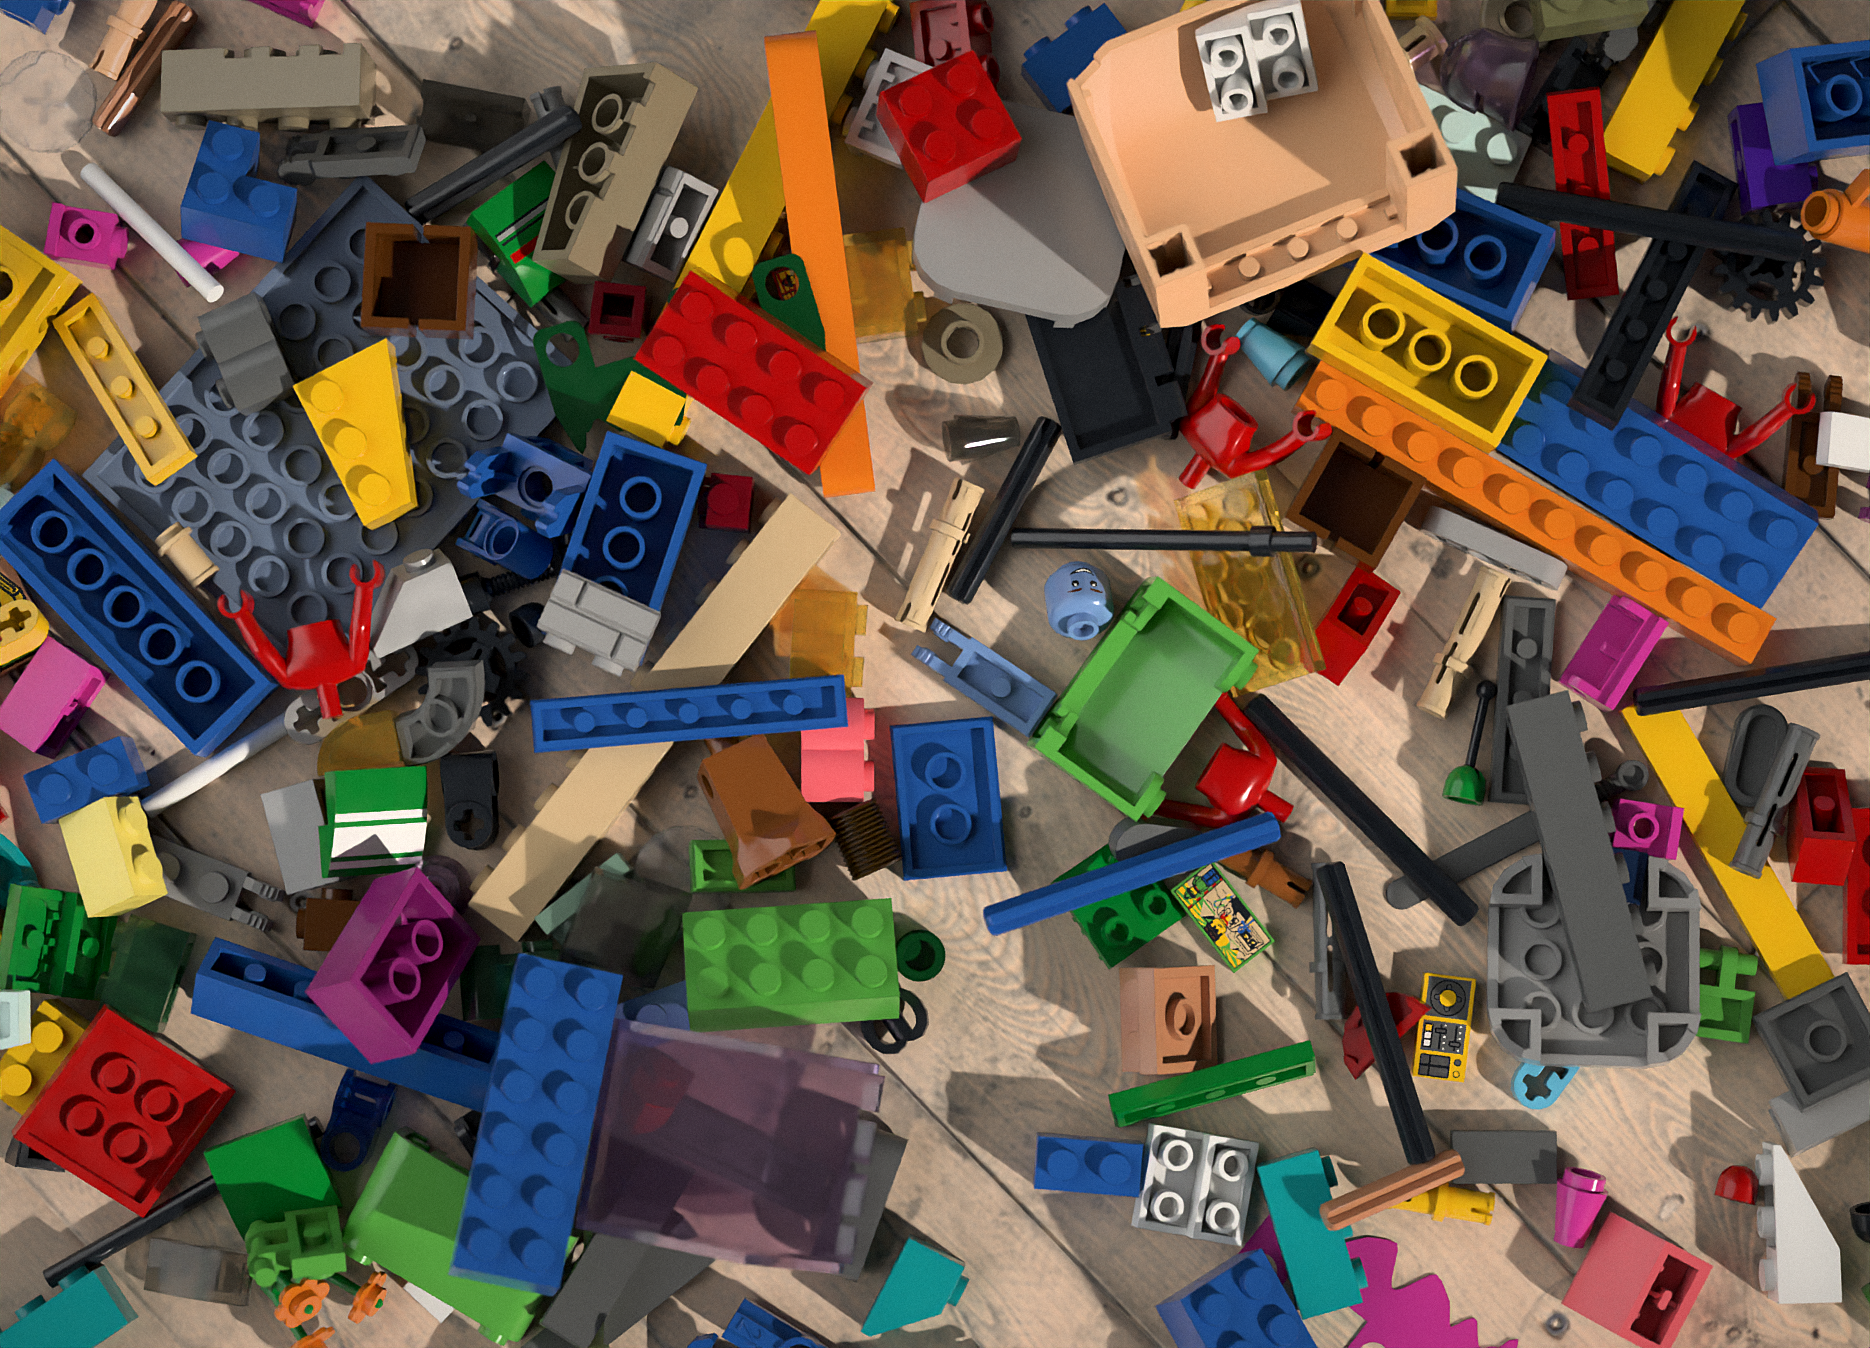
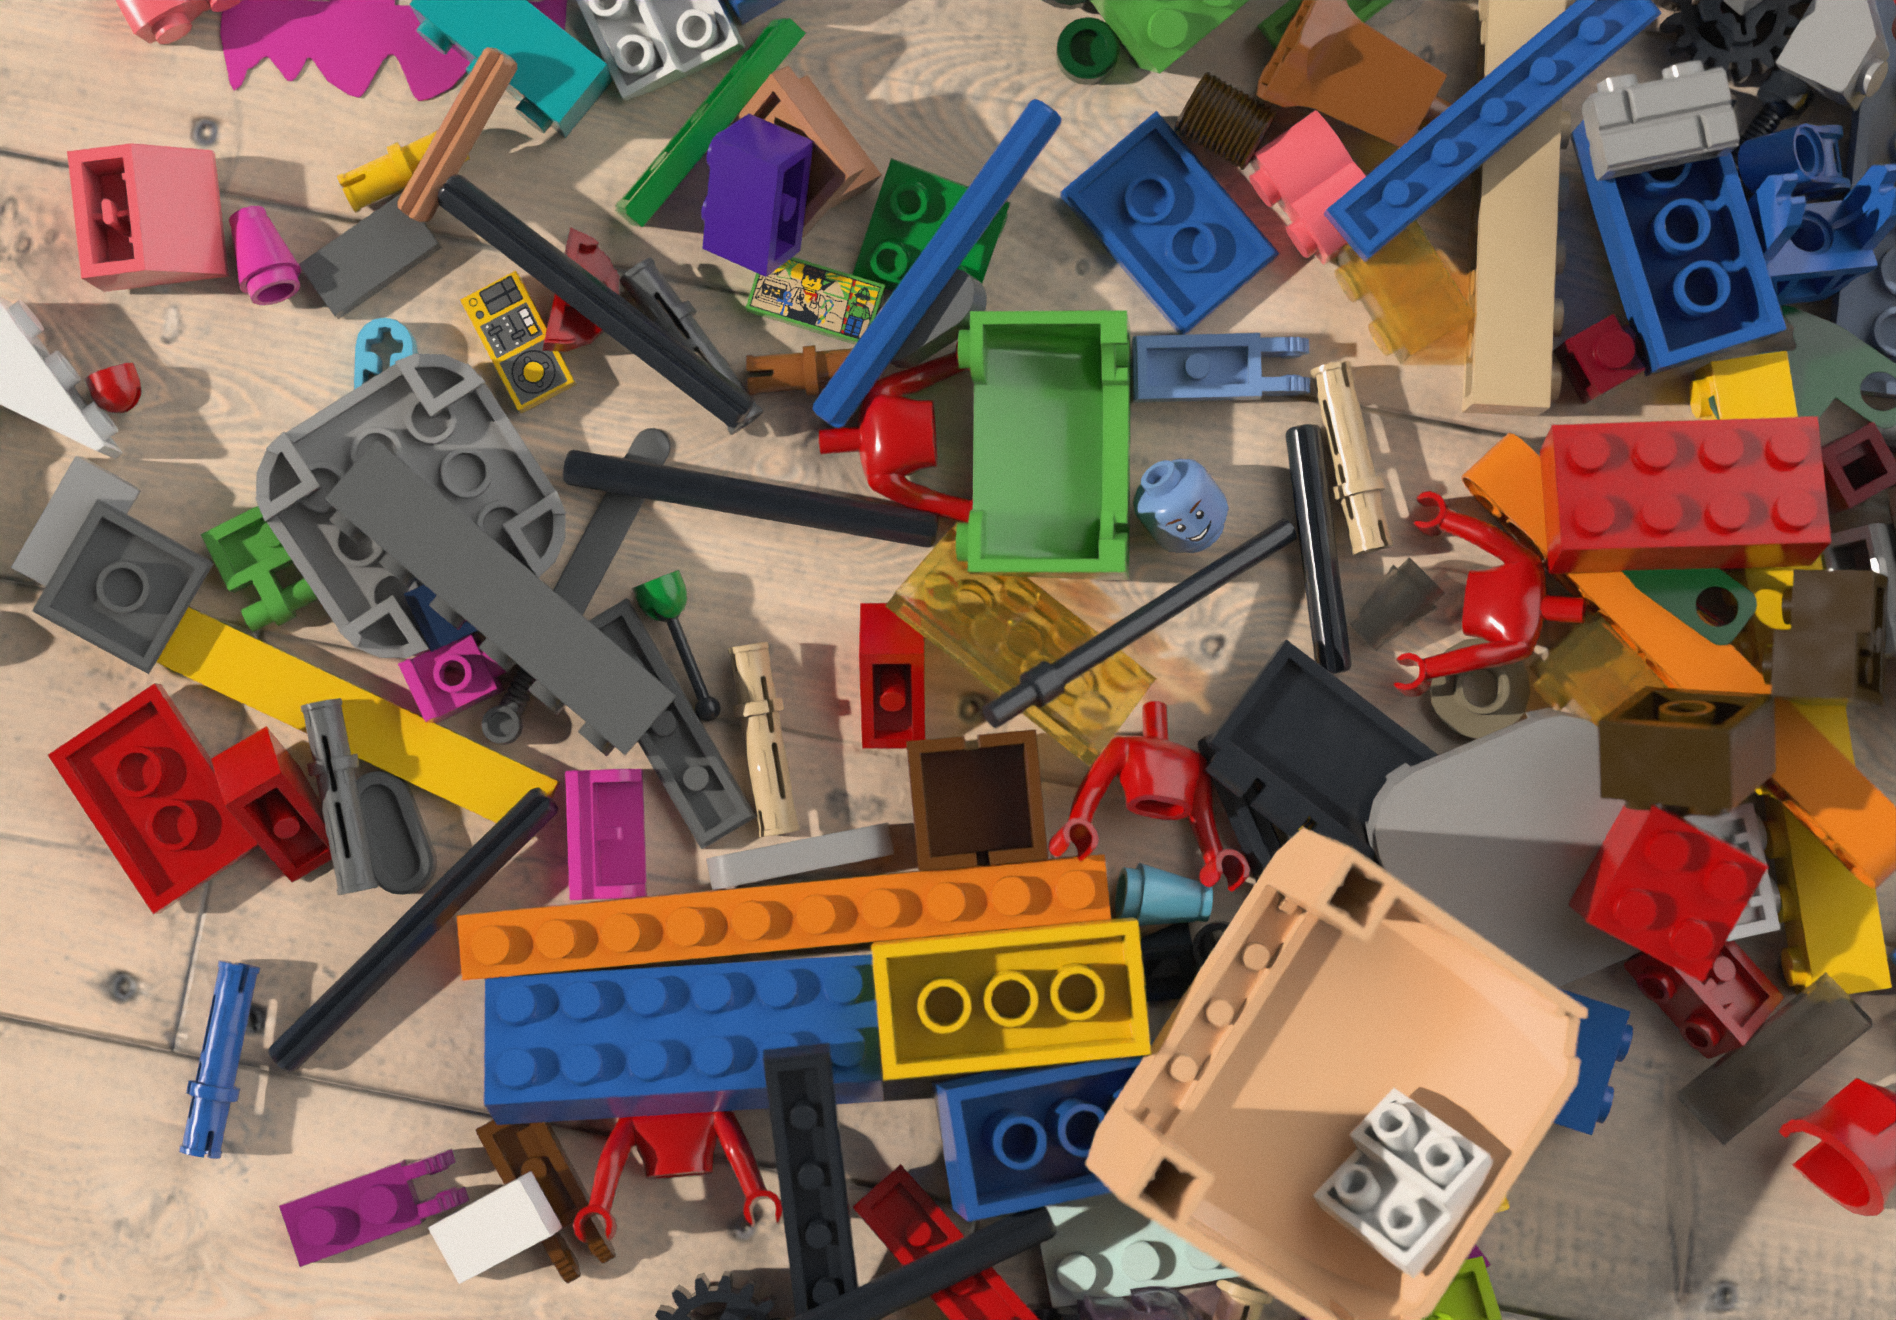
camera: 140 degrees right, 0 degrees up
(724, 204) = (1834, 639): none -> dark brown brick
(877, 204) = (1687, 749): none -> dark brown brick
(912, 388) = (1499, 602): none -> red piece
(1219, 1006) = (756, 194): none -> dark purple brick

